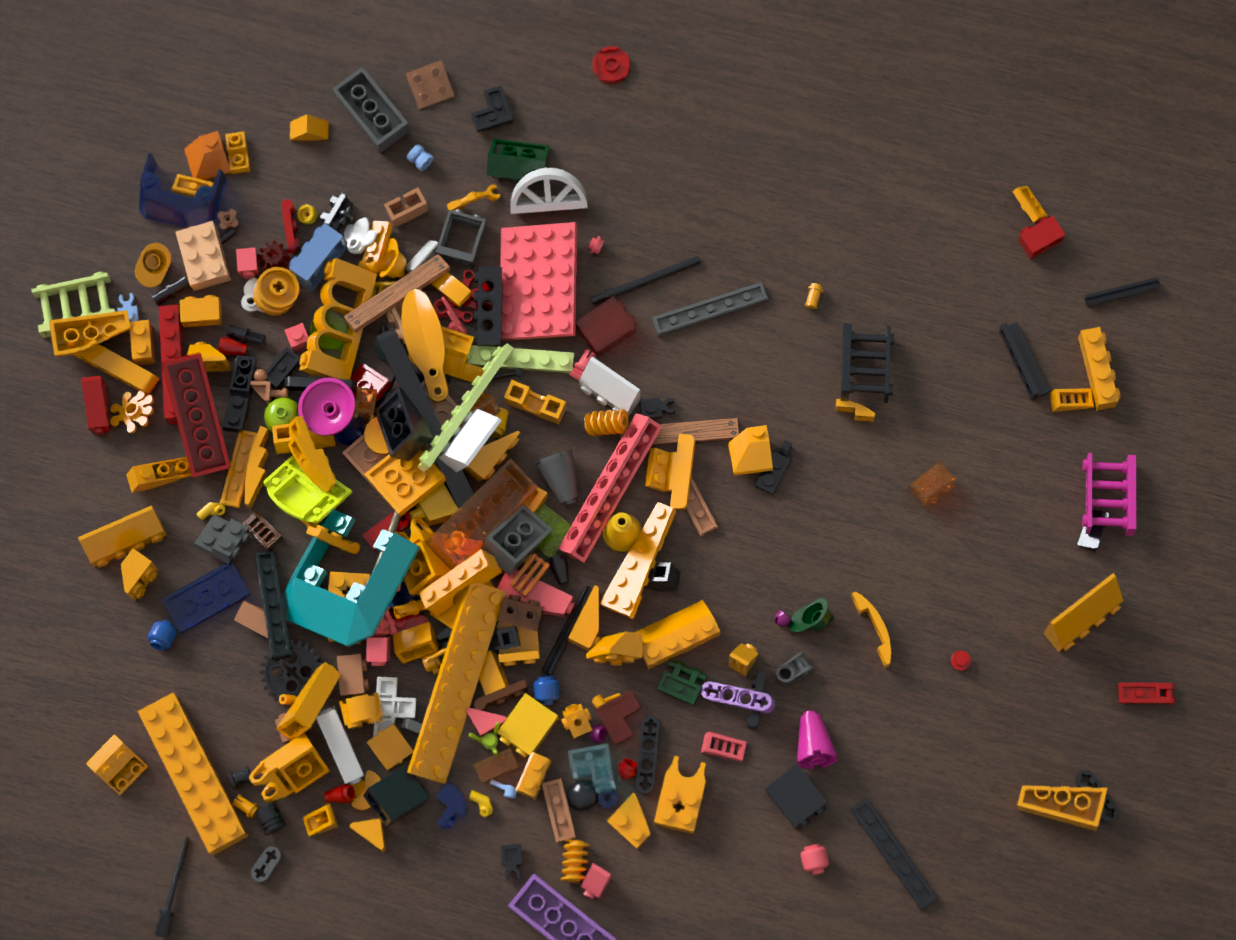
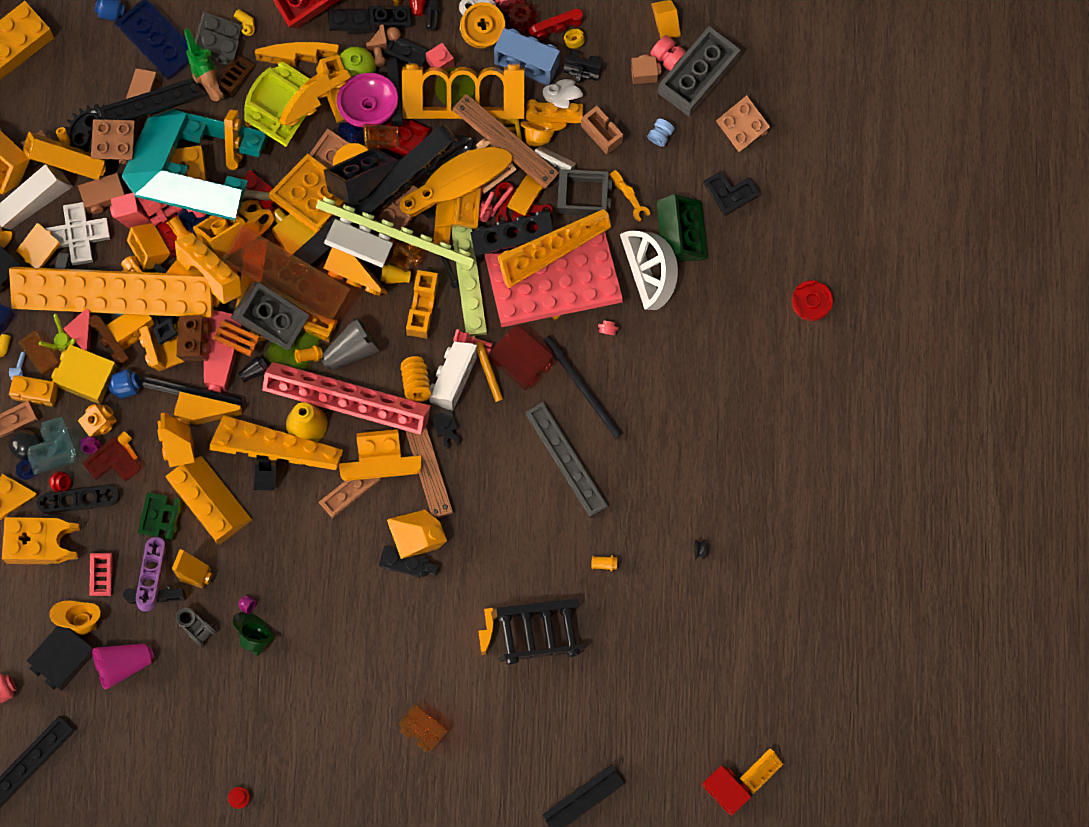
camera: 70 degrees right, 0 degrees up
(236, 476) = (271, 36): light orange tile -> none
(253, 554) = (202, 67): none -> green animal
(307, 649) = (112, 140): none -> nougat hinge
(346, 133) = (667, 52): none -> coral wheel
(355, 158) = (645, 69): none -> nougat brick
(362, 709) = (63, 208): light orange brick -> none
(518, 291) = (539, 253): none -> light orange wing
(559, 509) = (314, 353): none -> light orange pin
(614, 357) = (488, 371): none -> light orange bar
(761, 774) = (76, 616): none -> light orange piece
(819, 211) = (699, 549): none -> black bush
(863, 606) = (231, 716): light orange slope -> none

